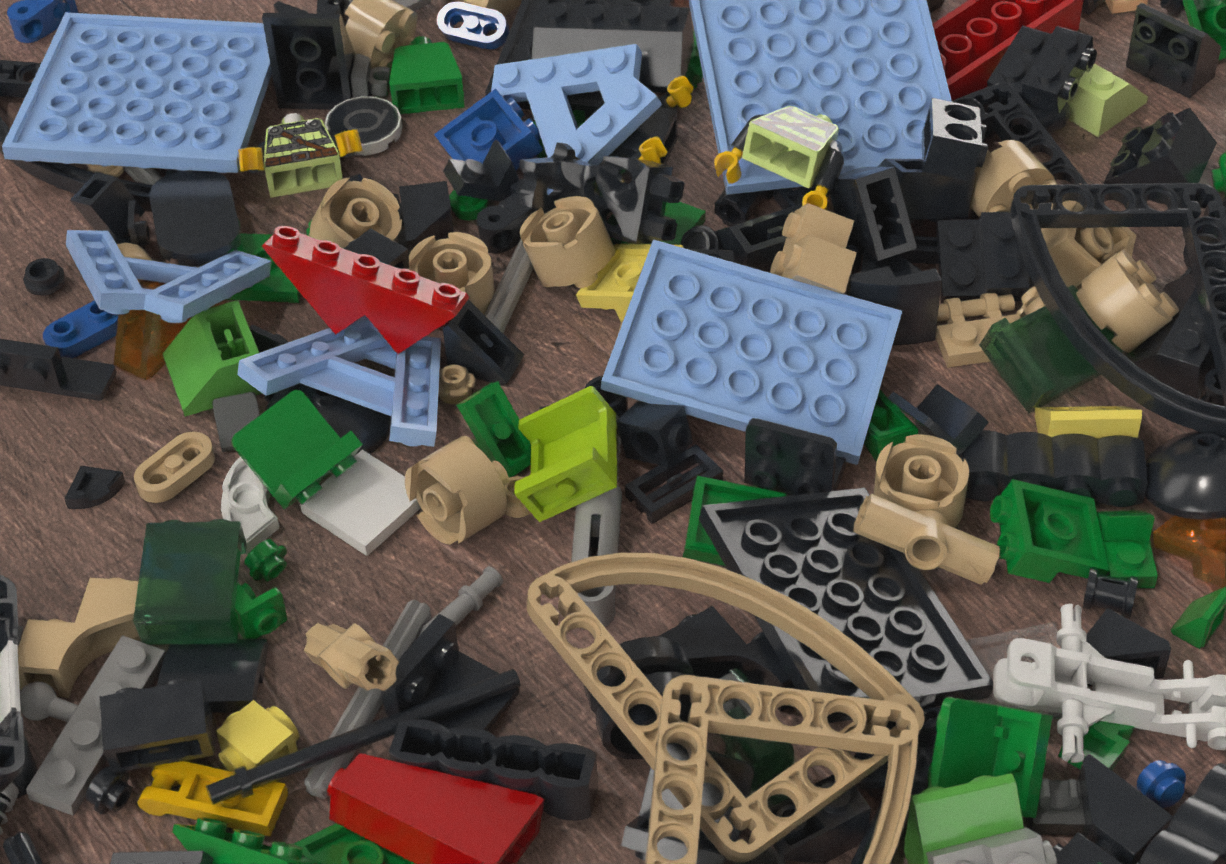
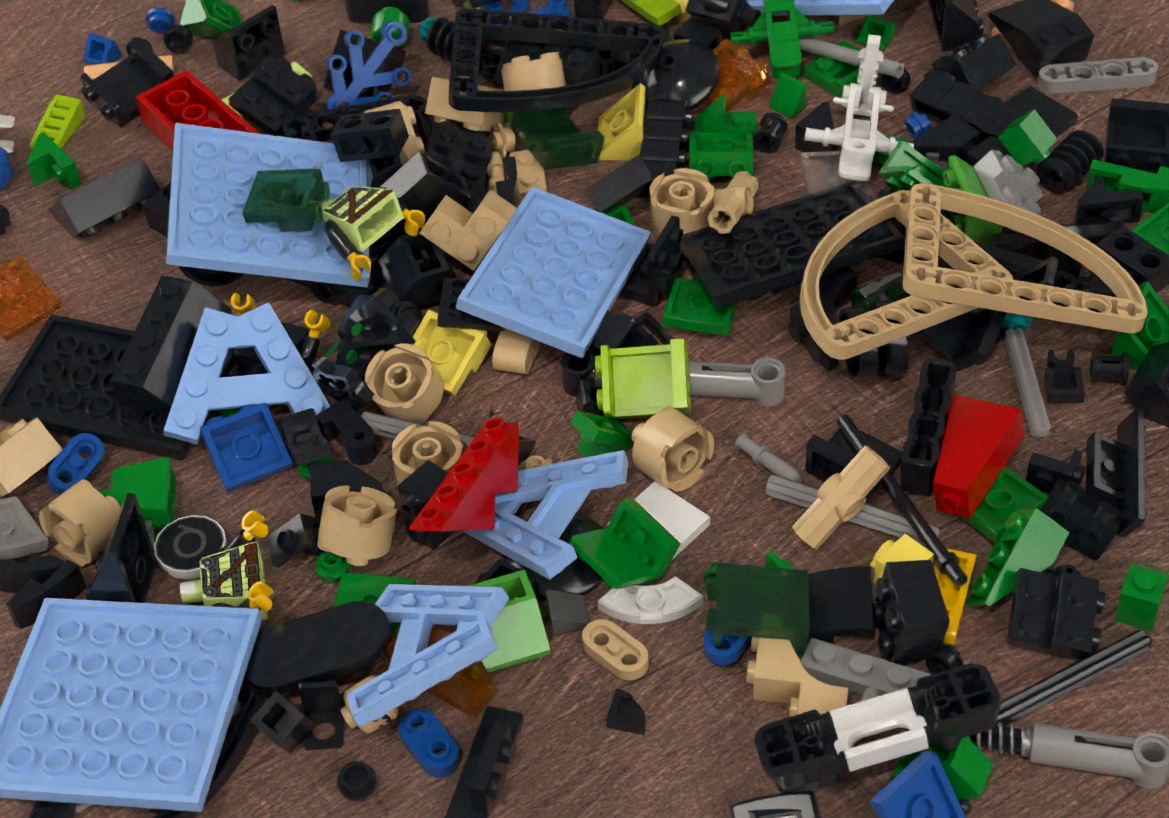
camera: 85 degrees left, 0 degrees up
(808, 75) = (287, 198): none -> clear green plate
(1118, 147) = (363, 74): none -> blue plant

